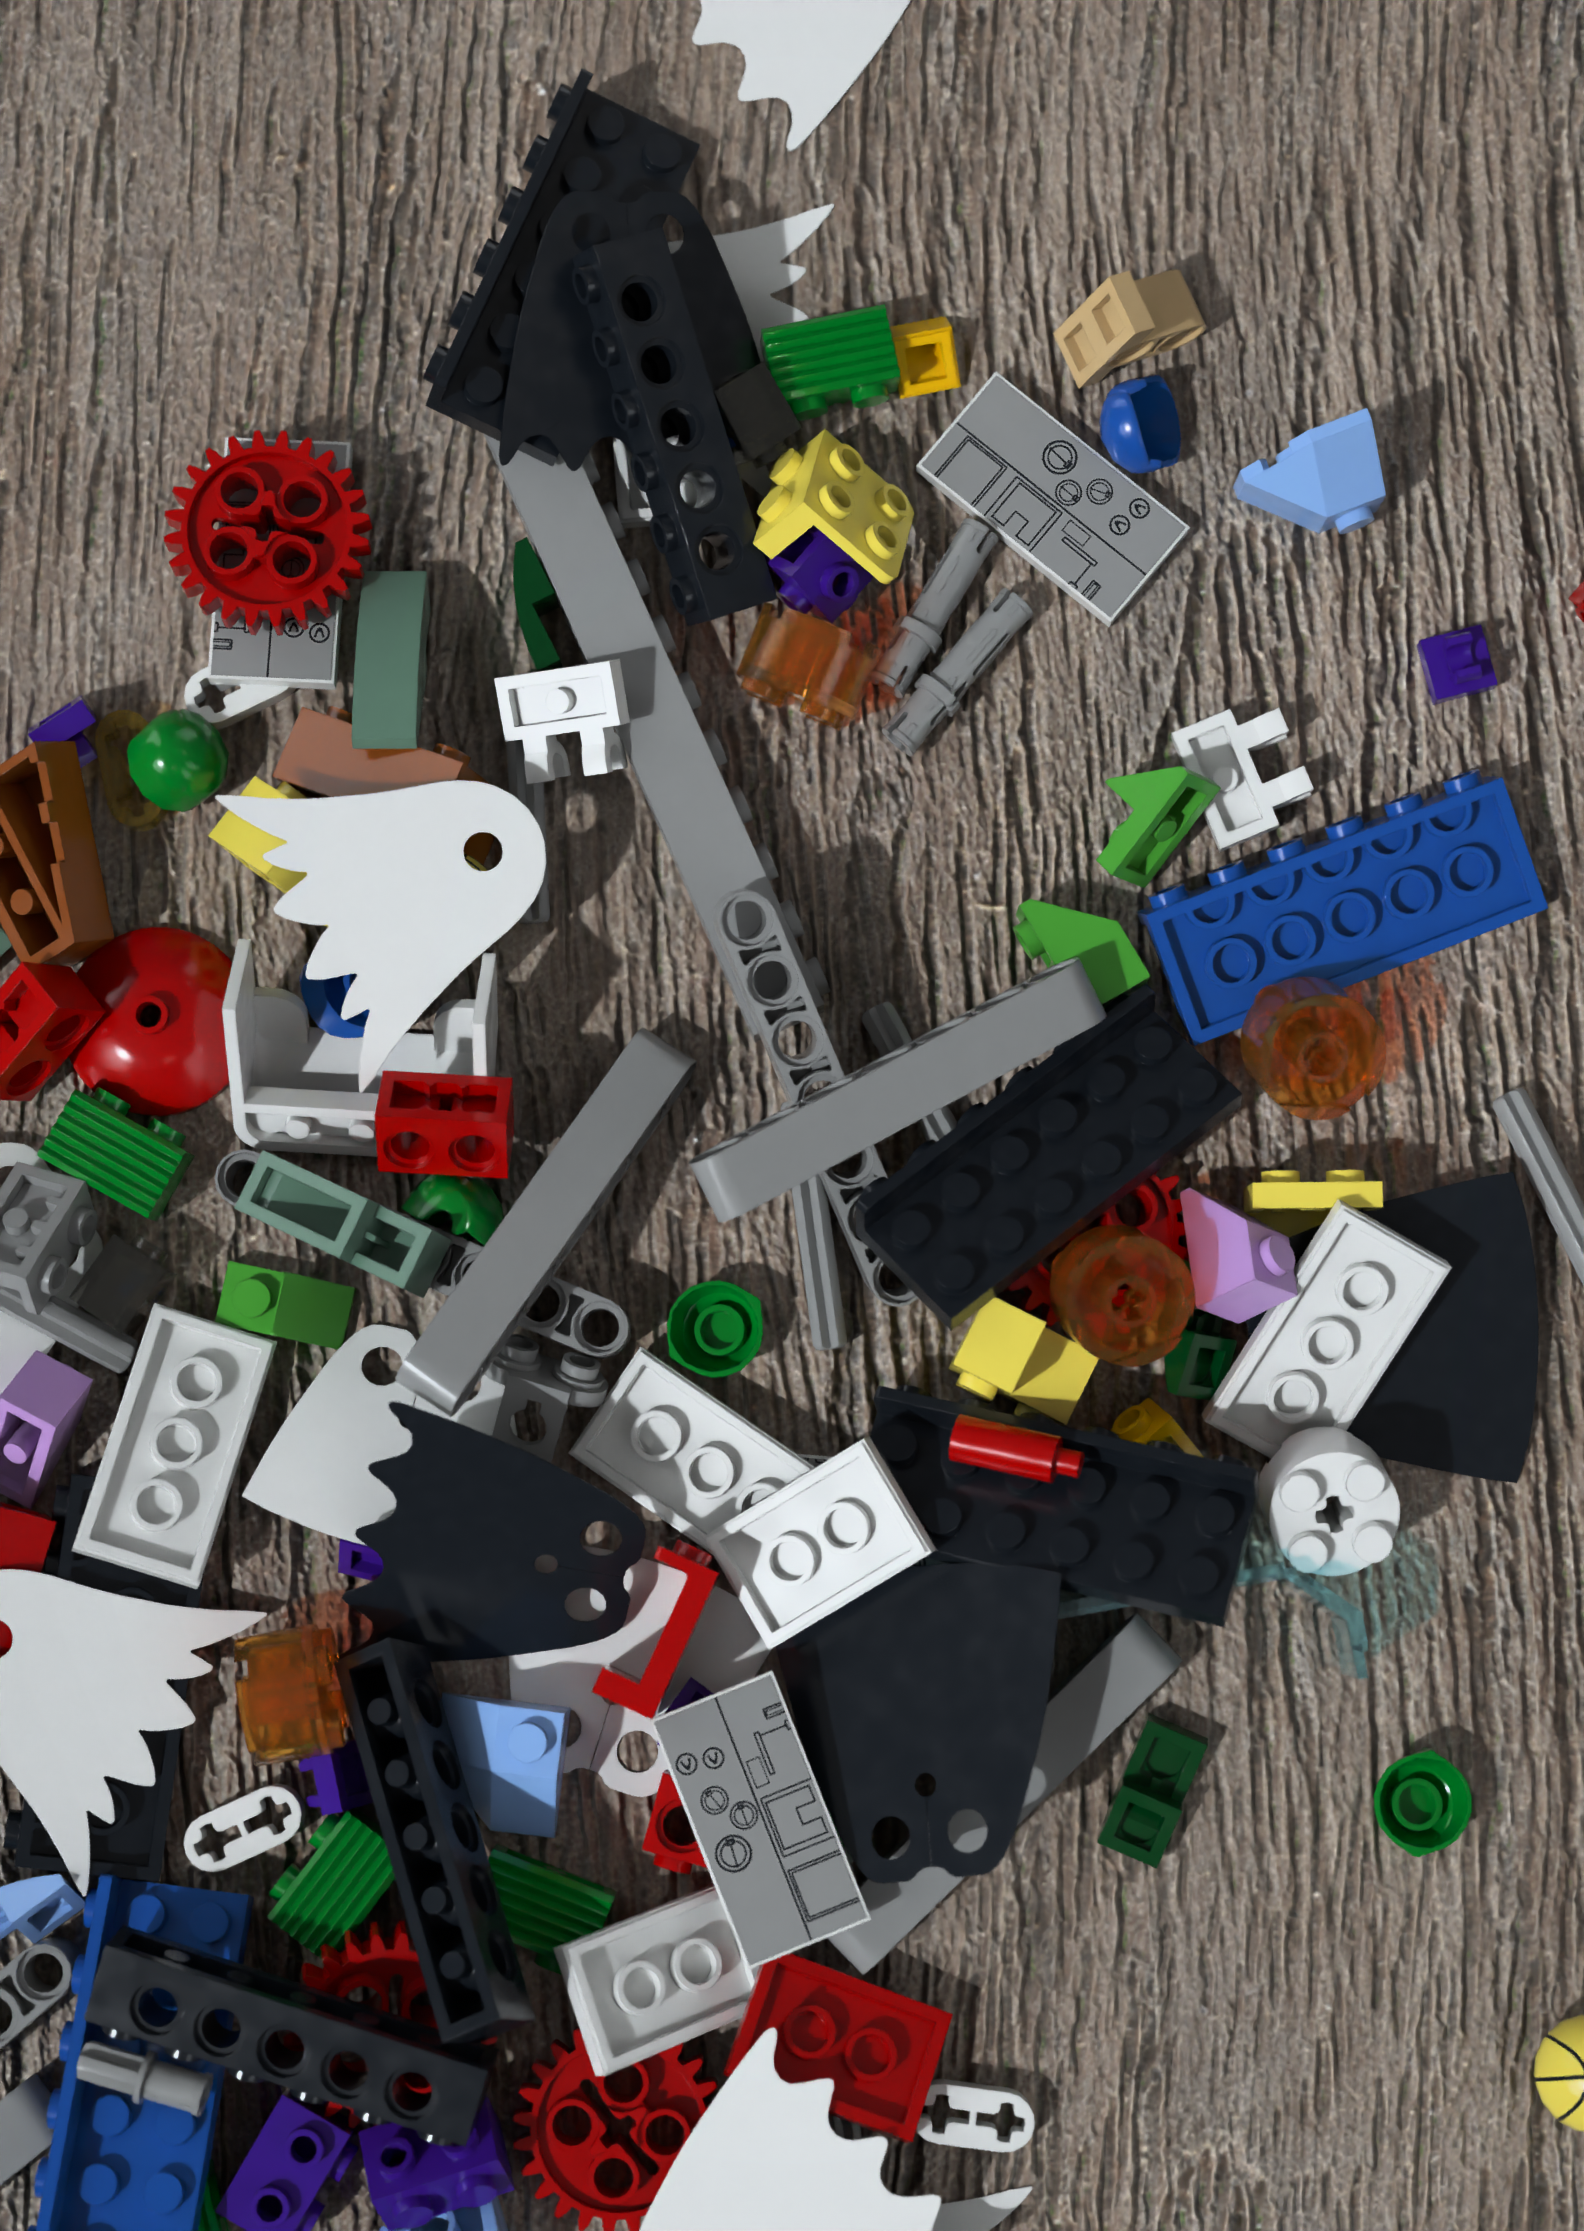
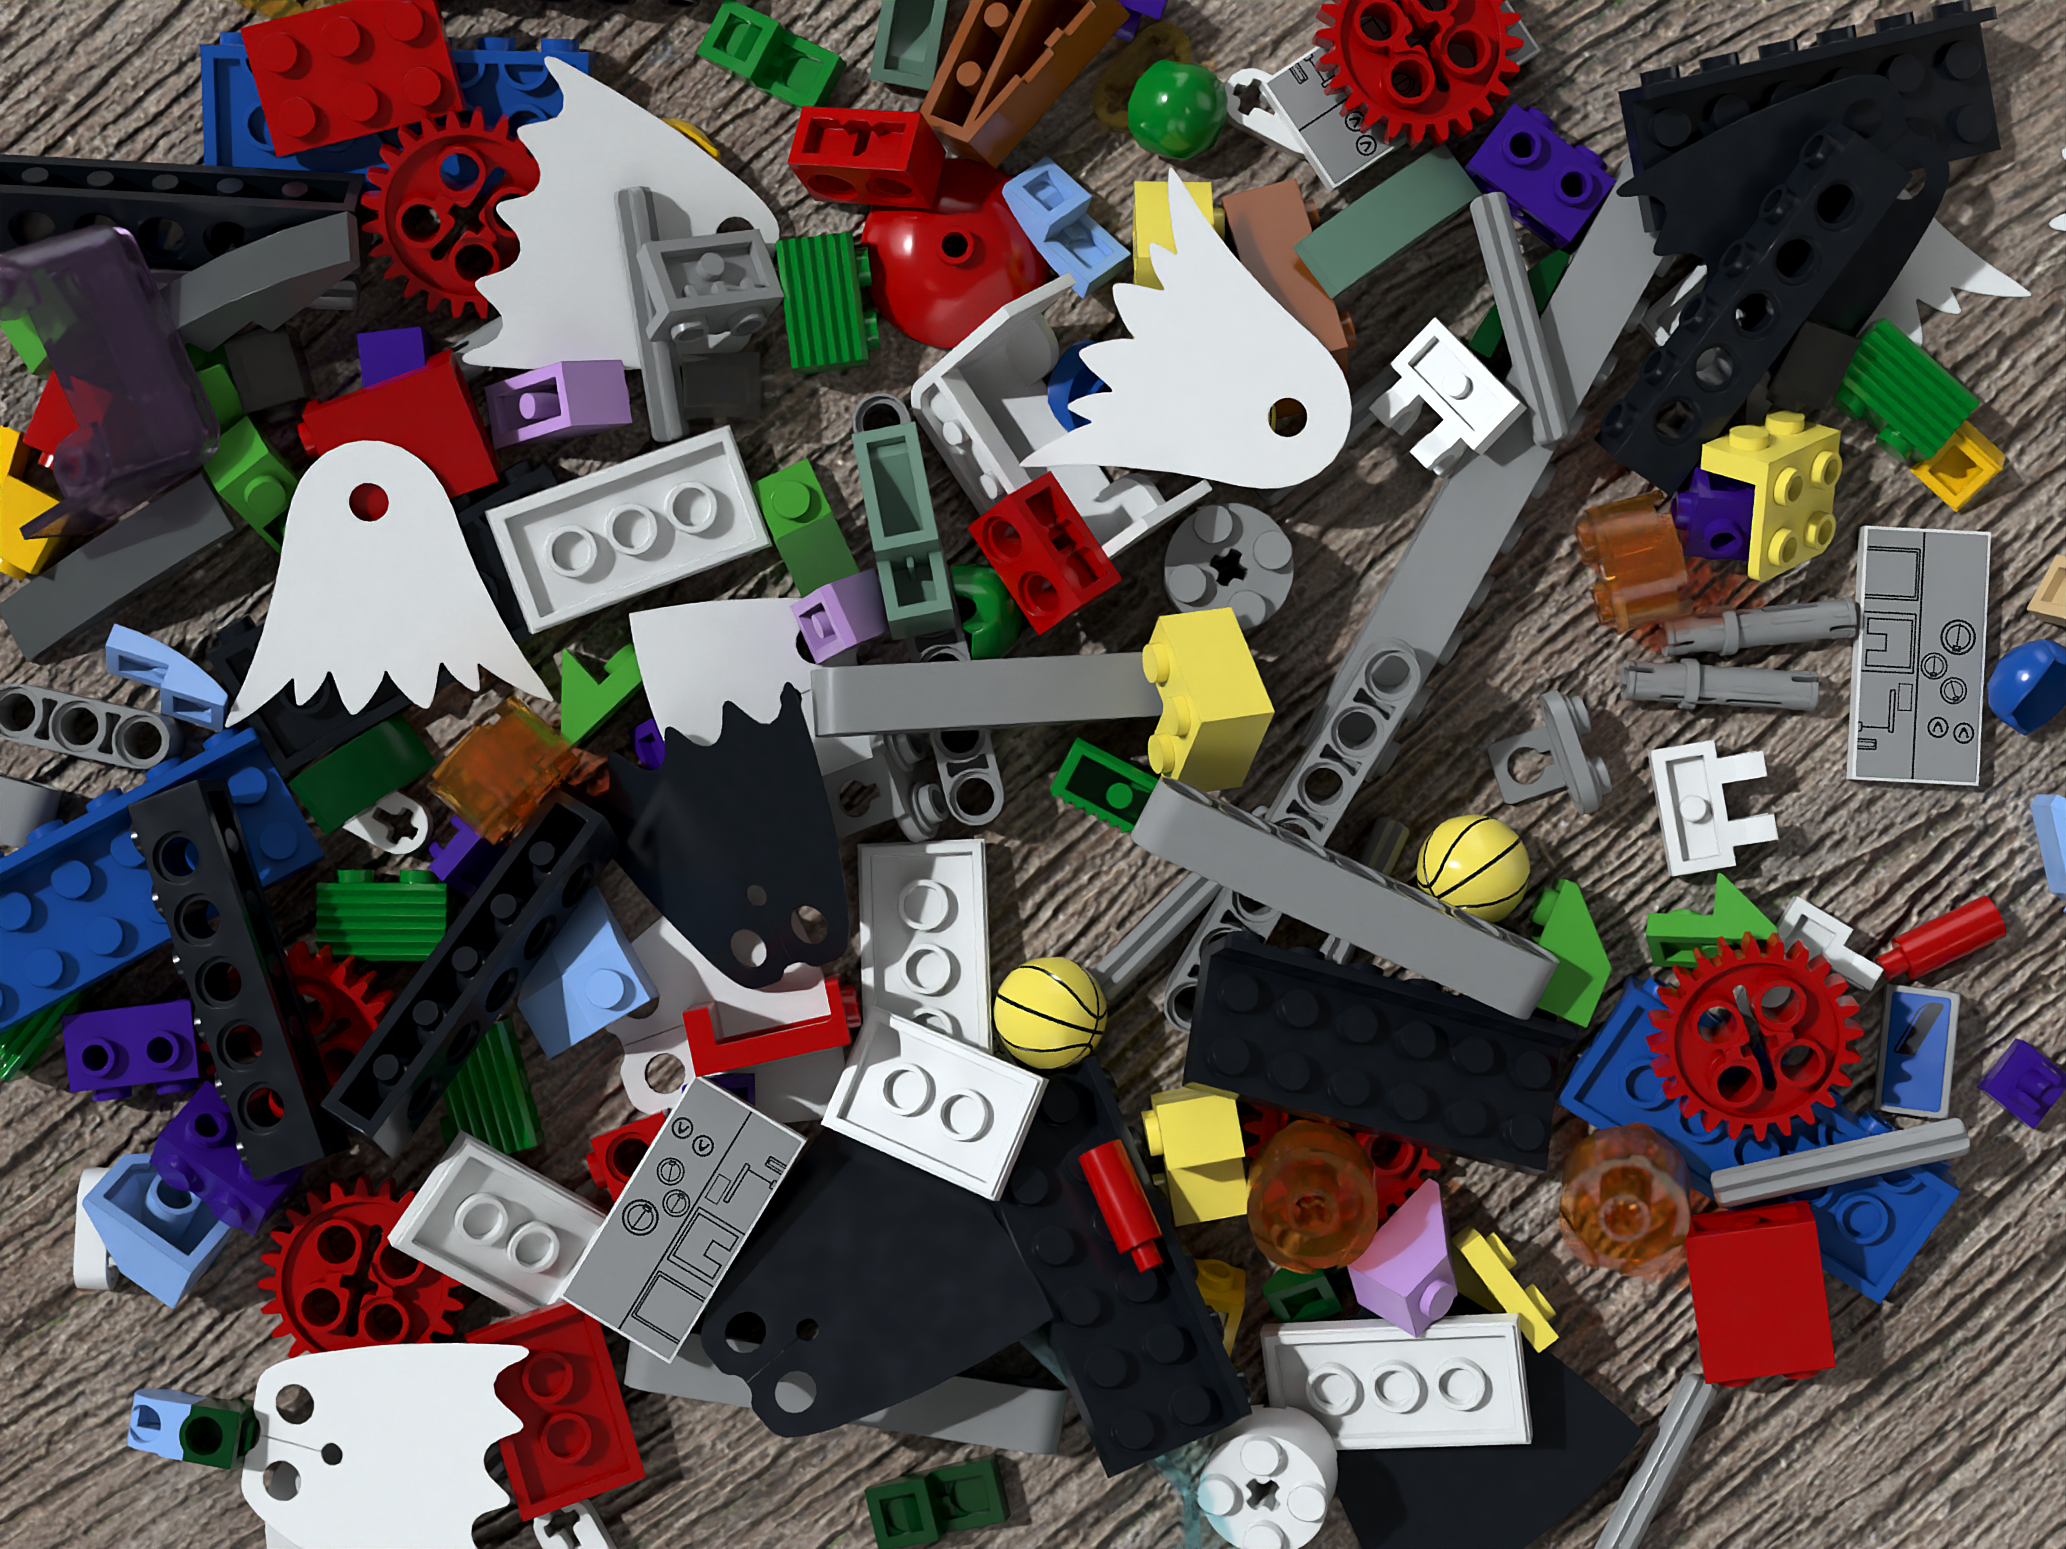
camera: 45 degrees right, 5 degrees up
(144, 2077) = (120, 884): light grey axle -> none
(189, 921) = (1055, 219): none -> light blue slope
(207, 1812) = (363, 773): none -> dark green slope
(293, 1583) = (587, 700): none -> bright green slope
(374, 1325) = (842, 615): none -> lavender slope
(446, 516) = (1543, 177): none -> dark purple brick
(535, 980) = (1261, 556): none -> light grey brick
(545, 613) = (1519, 318): none -> light grey axle
(662, 1079) = (1209, 698): none -> light yellow brick
(669, 1219) = (1103, 786): none -> green brick
(715, 1328) = (1043, 888): green hat -> none
(819, 1397) = (1050, 1012): none -> light yellow piece
(938, 835) = (1561, 735): none -> light grey bracket
(955, 968) = (1475, 866): none -> light yellow piece
(1039, 763) = (1694, 809): none -> white plate
(1269, 793) = (1809, 1017): none -> red gear
(1293, 644) = (1943, 940): none -> red cylinder
(1366, 730) = (1916, 1051): none -> slope
(1407, 855) = (1840, 1162): none -> light grey axle
(1467, 998) = (1758, 1294): none -> red panel

